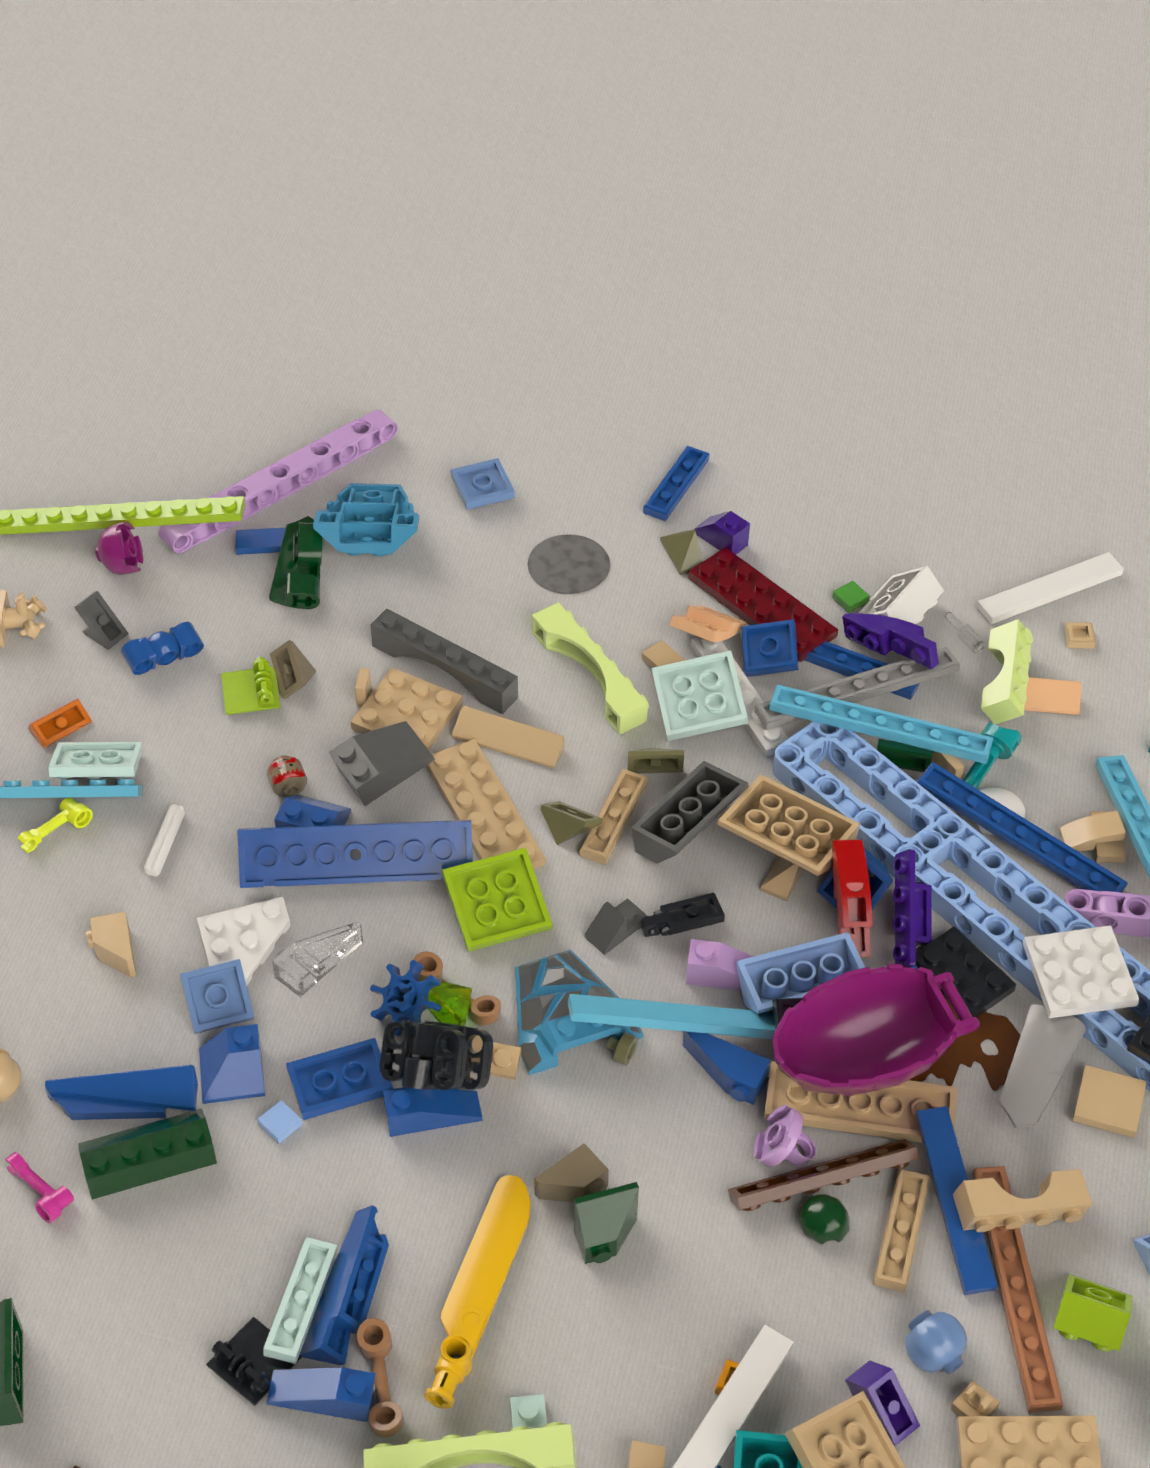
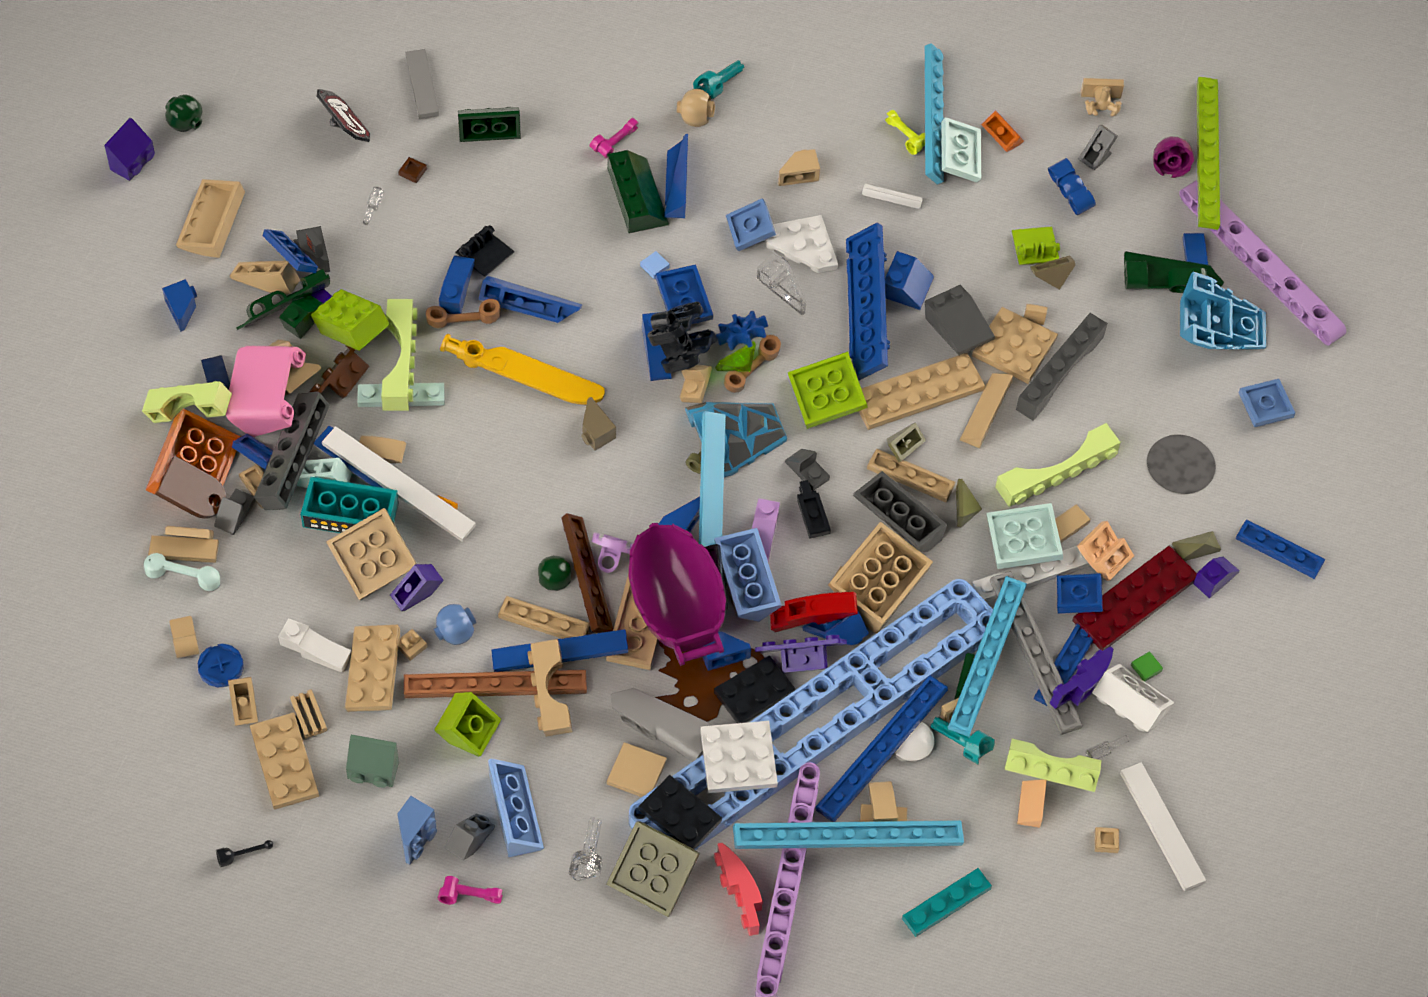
camera: 90 degrees right, 10 degrees up
(232, 1065) = (697, 239): blue slope -> none
(287, 776) = (947, 266): dark tan head -> none
(300, 1300) = (520, 272): light aqua plate -> none
(605, 1221) = (554, 436): slope -> none

